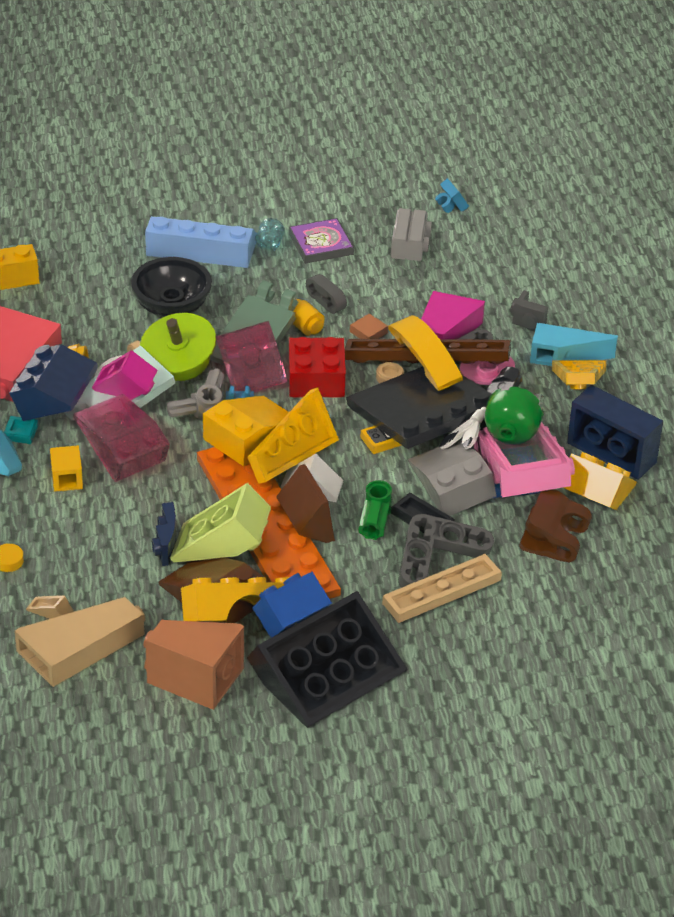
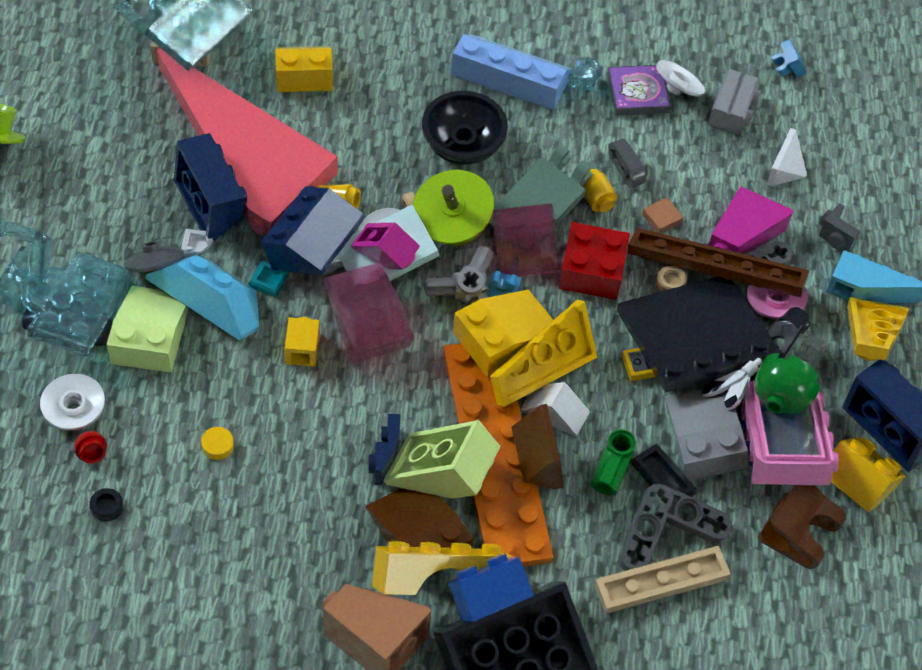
camera: 10 degrees right, 15 degrees up
(50, 606) = (246, 517): tan piece -> none
(79, 639) = (263, 569): tan slope -> none
(356, 227) = (679, 79): none -> white dish
(428, 350) = (714, 268): yellow slope -> none
(470, 272) = (789, 162): none -> white slope

